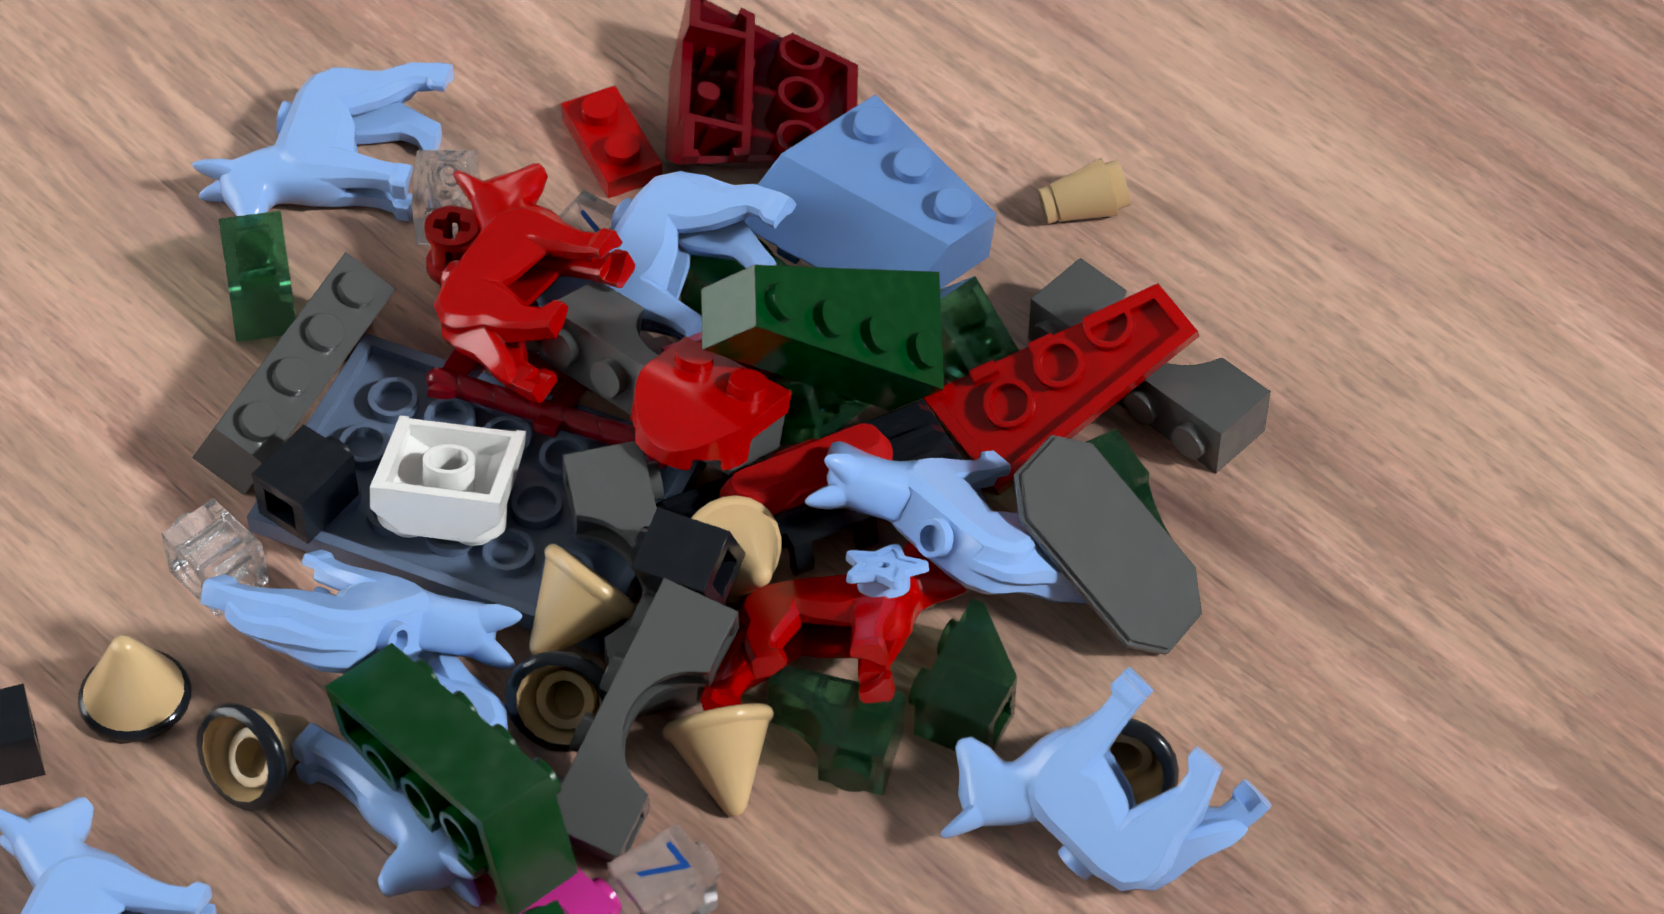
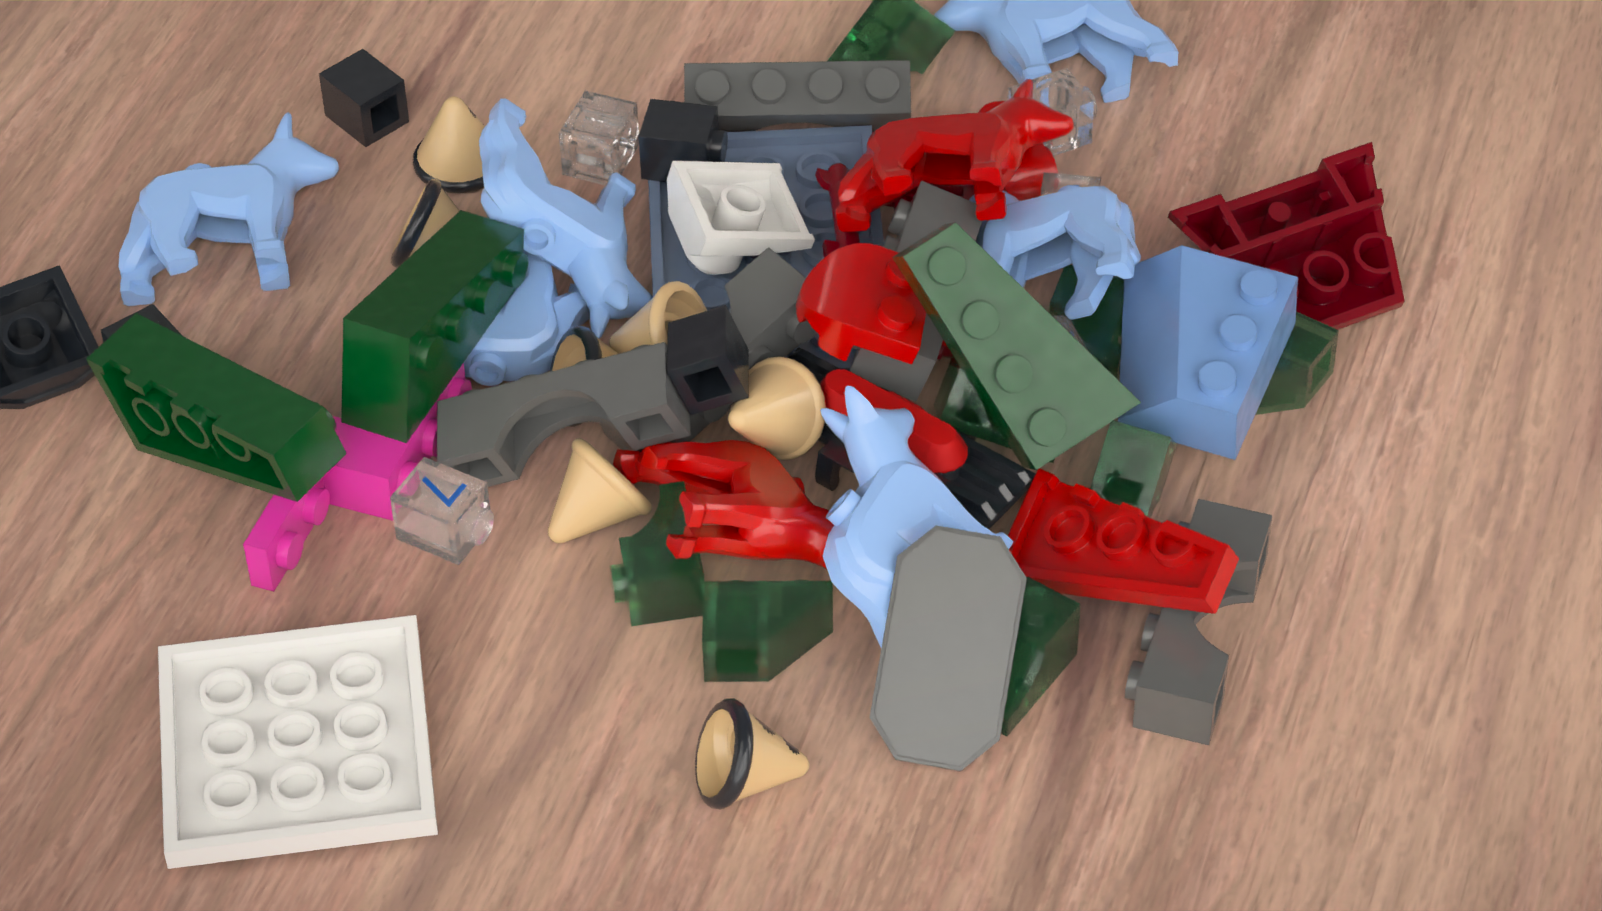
camera: 65 degrees right, 5 degrees down
(611, 141) = (1201, 177): red plate -> none
(883, 571) = (797, 496): light blue plate -> none
(1086, 193) = (1381, 509): tan cone -> none
(1090, 806) = (657, 764): light blue animal -> none

